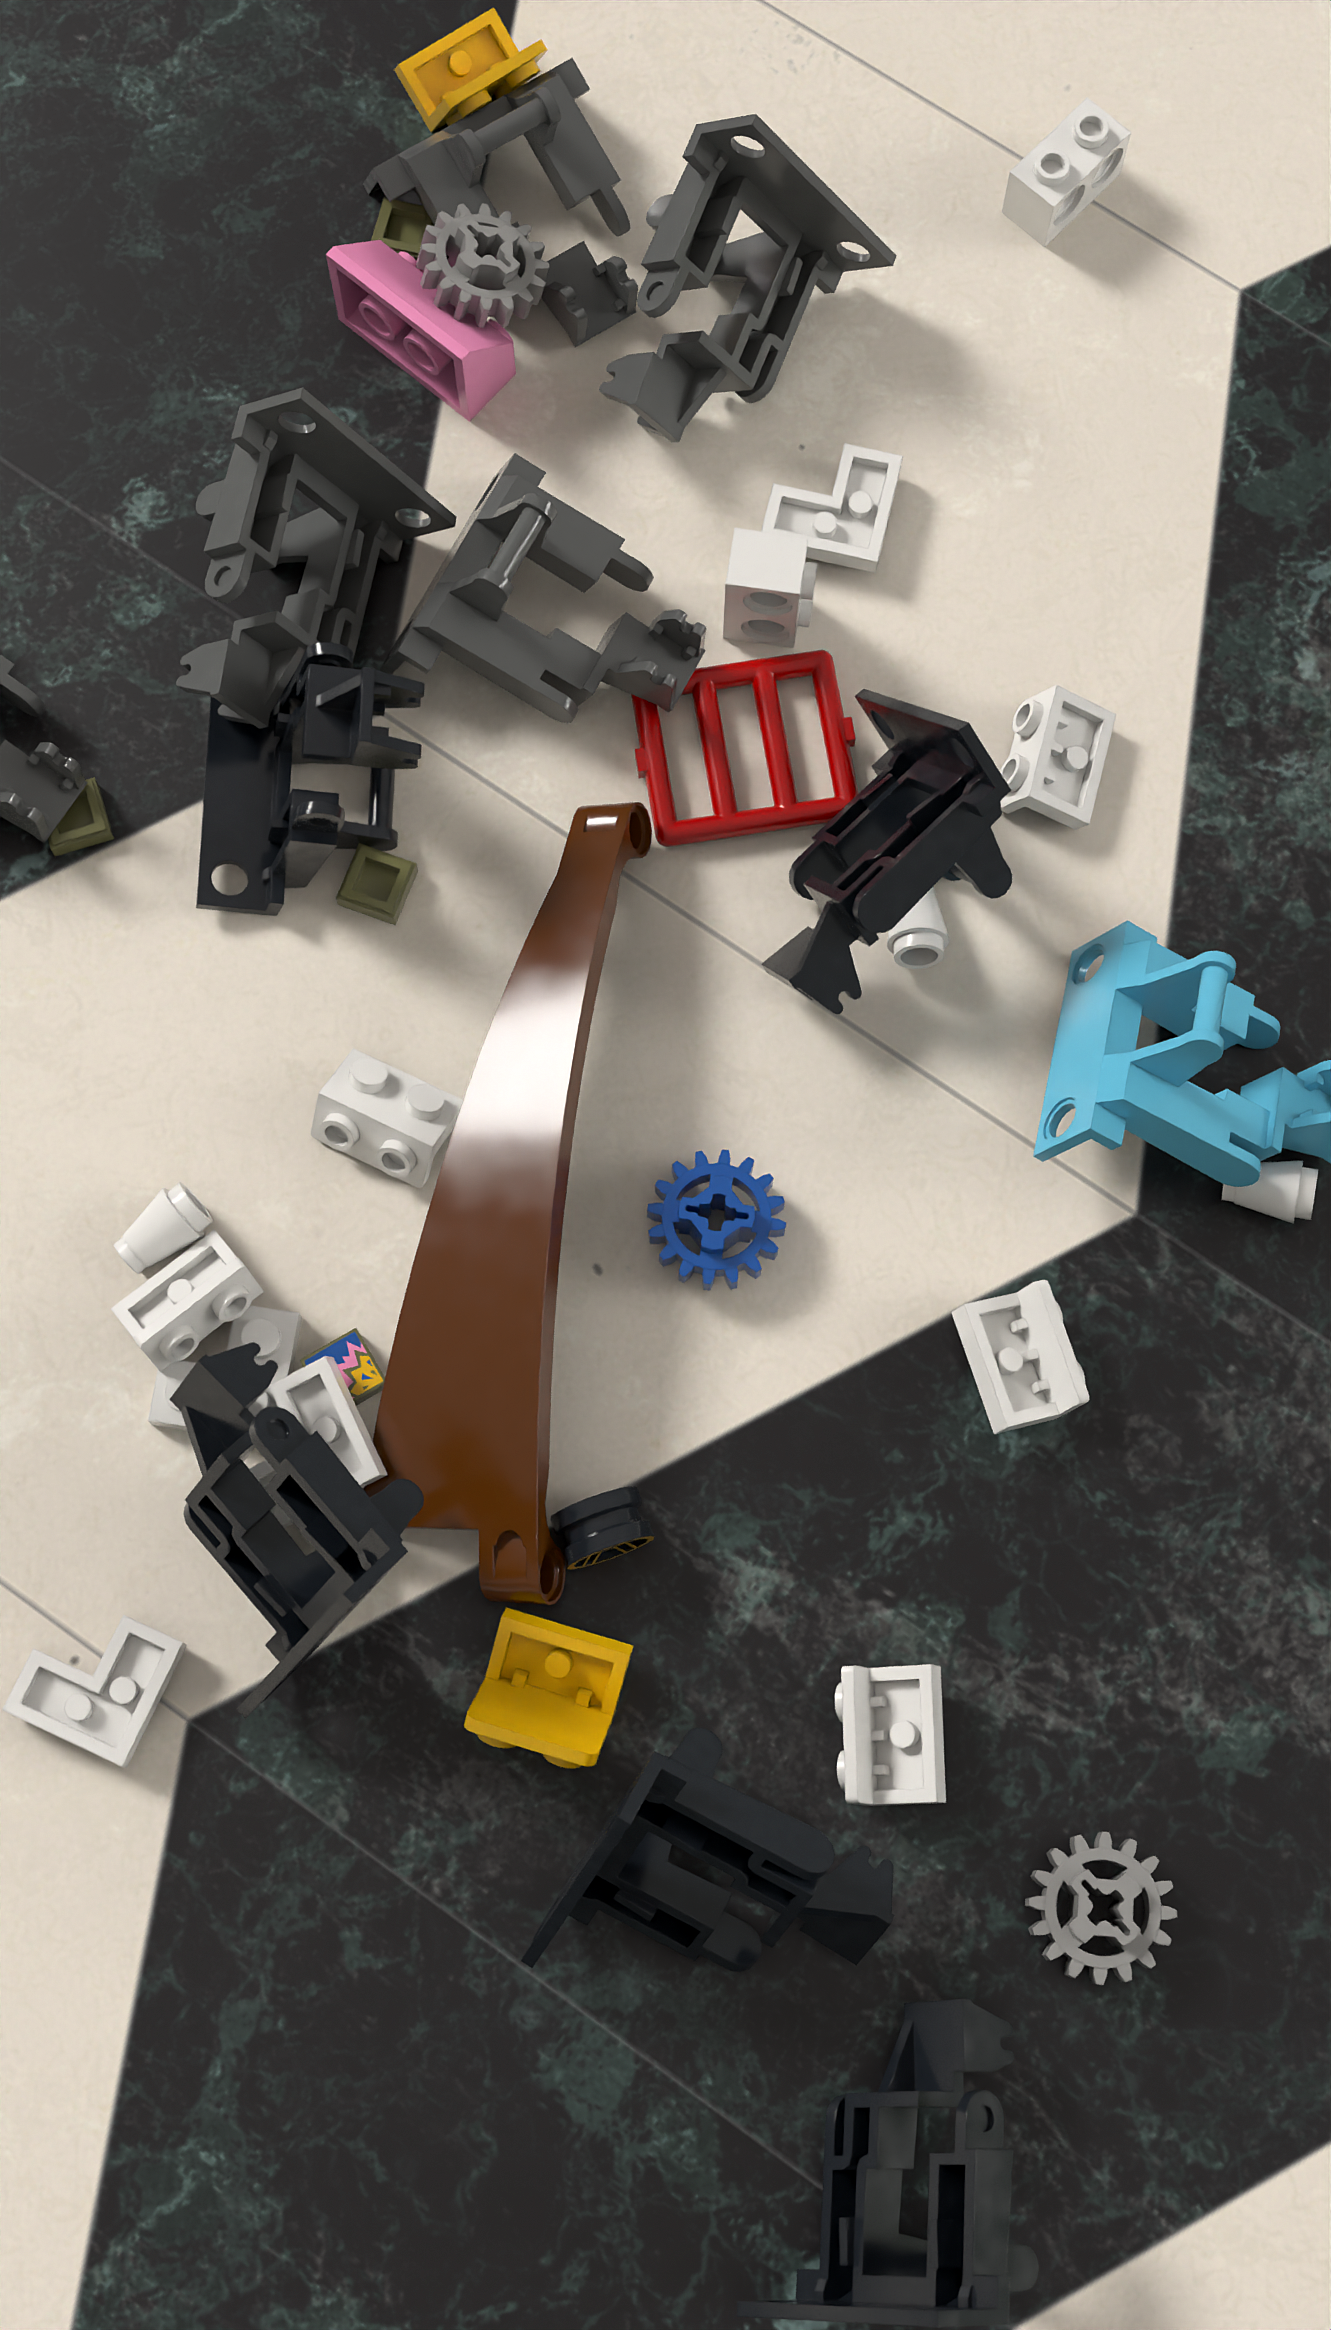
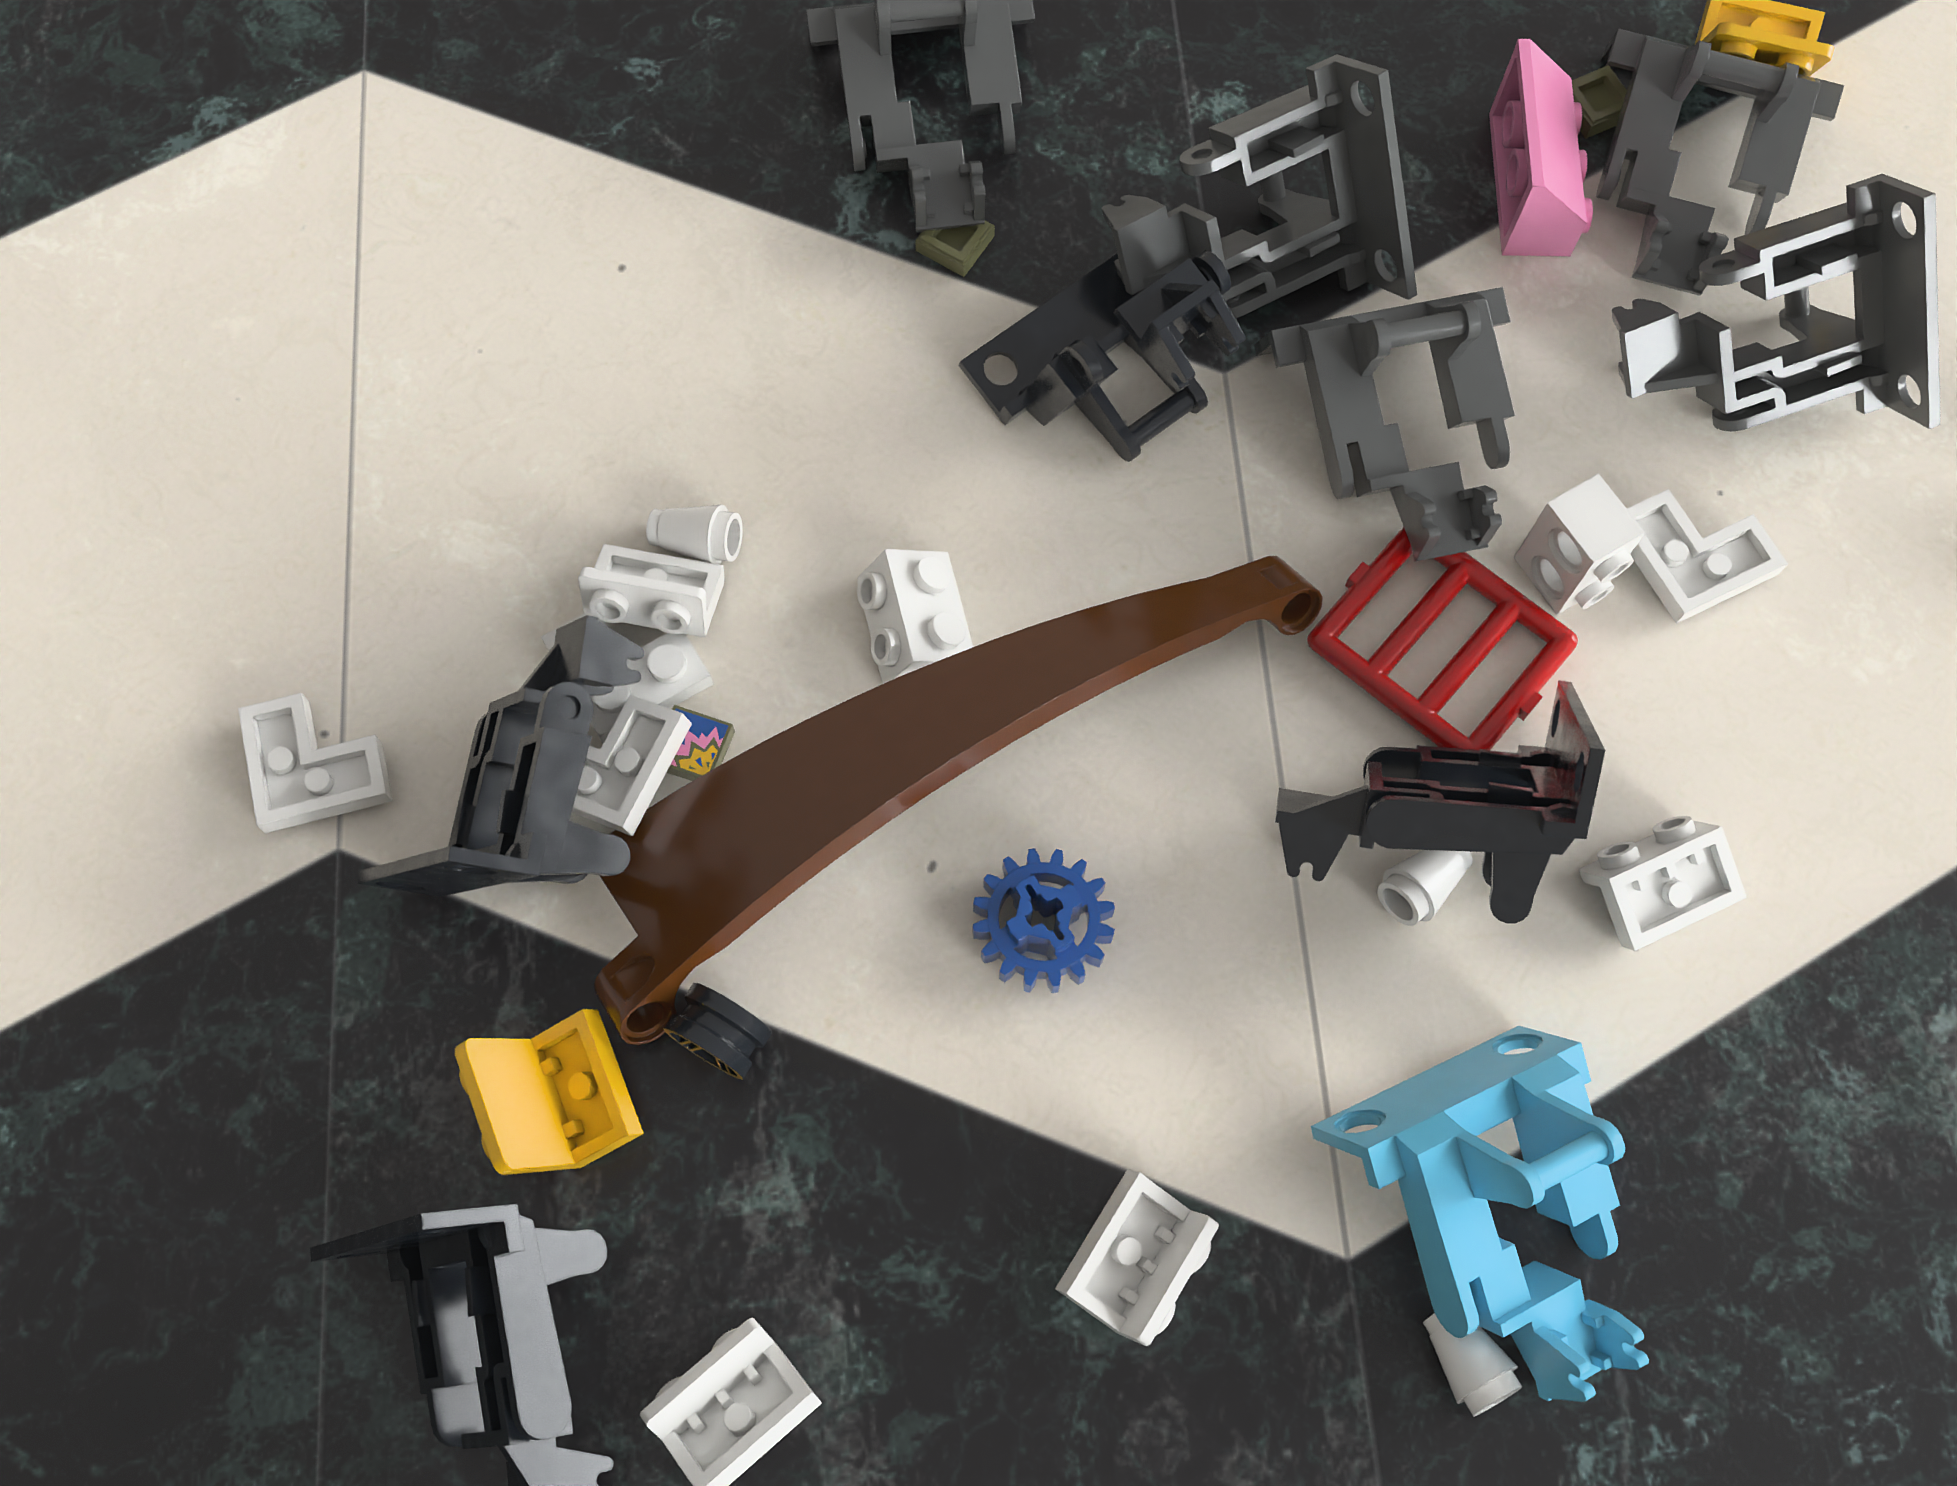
camera: 50 degrees right, 5 degrees down
(377, 884) = (1089, 470): olive tile -> none
(482, 265) = (1621, 150): light grey gear -> none

